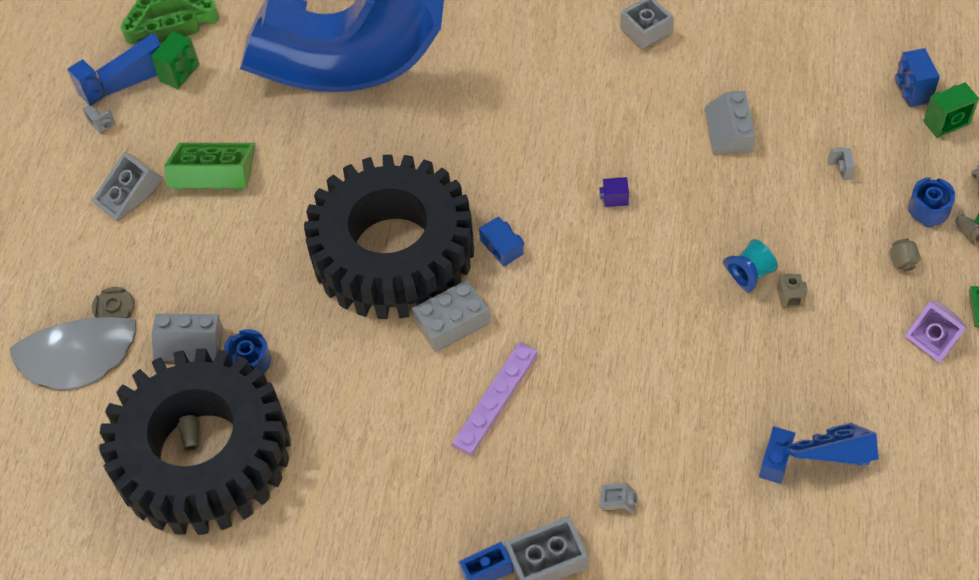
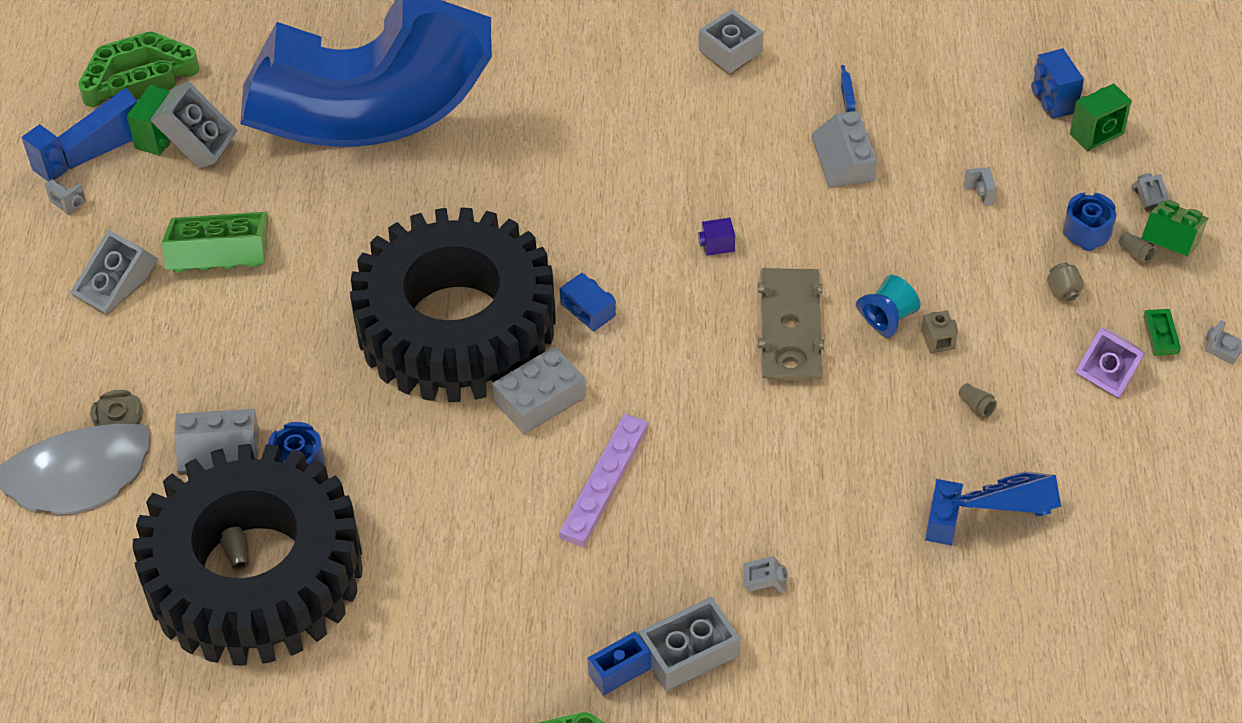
camera: 10 degrees left, 5 degrees down
(203, 67) = (194, 125): none -> light grey brick
(672, 248) = (797, 296): none -> dark tan piece
(738, 69) = (847, 90): none -> blue piece
(818, 356) = (979, 401): none -> dark tan cone

